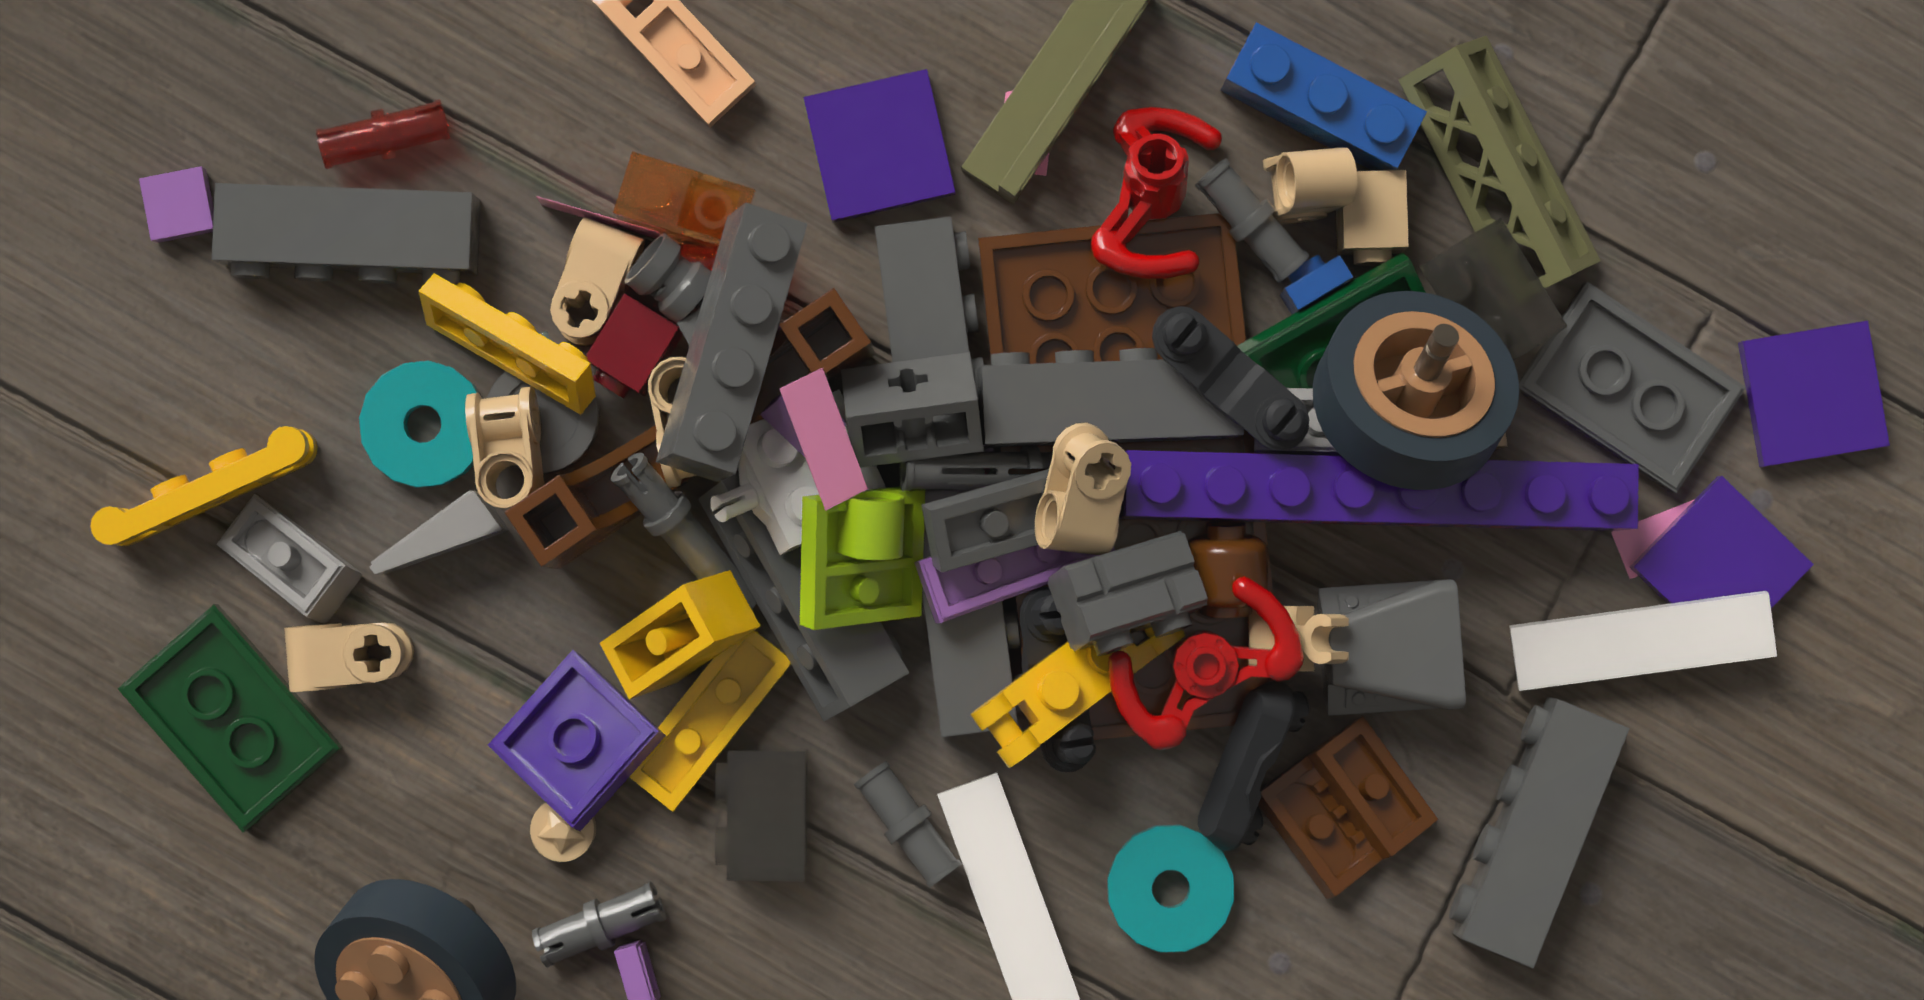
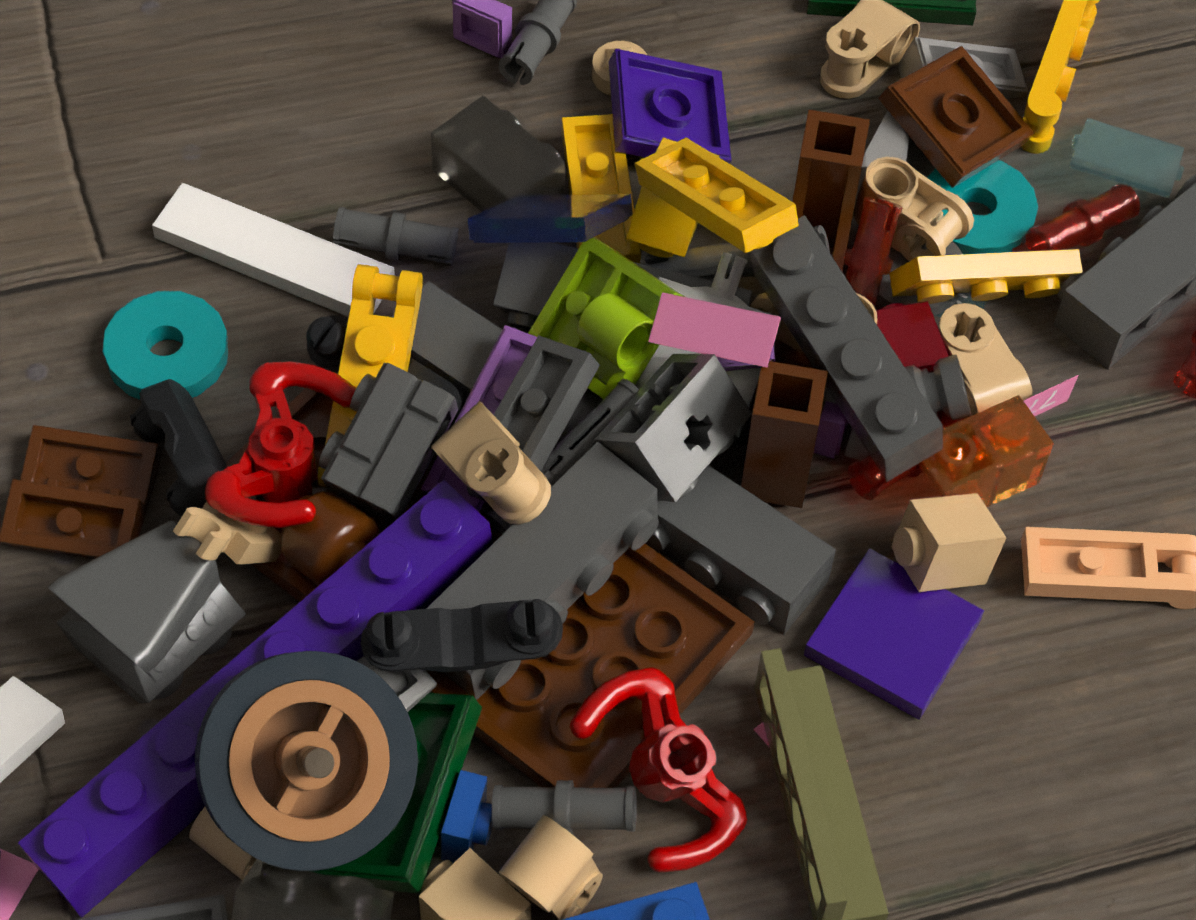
camera: 135 degrees right, 30 degrees down
(259, 350) = (1127, 157): none -> clear light blue piece
(363, 328) = (1084, 220): none -> clear red pin
(367, 503) = (956, 116): none -> reddish brown tile
(588, 436) = (871, 248): none -> clear red pin
(712, 542) = (717, 195): none -> yellow plate
(782, 162) = (948, 542): none -> tan brick
(818, 680) = (550, 218): none -> clear blue tile

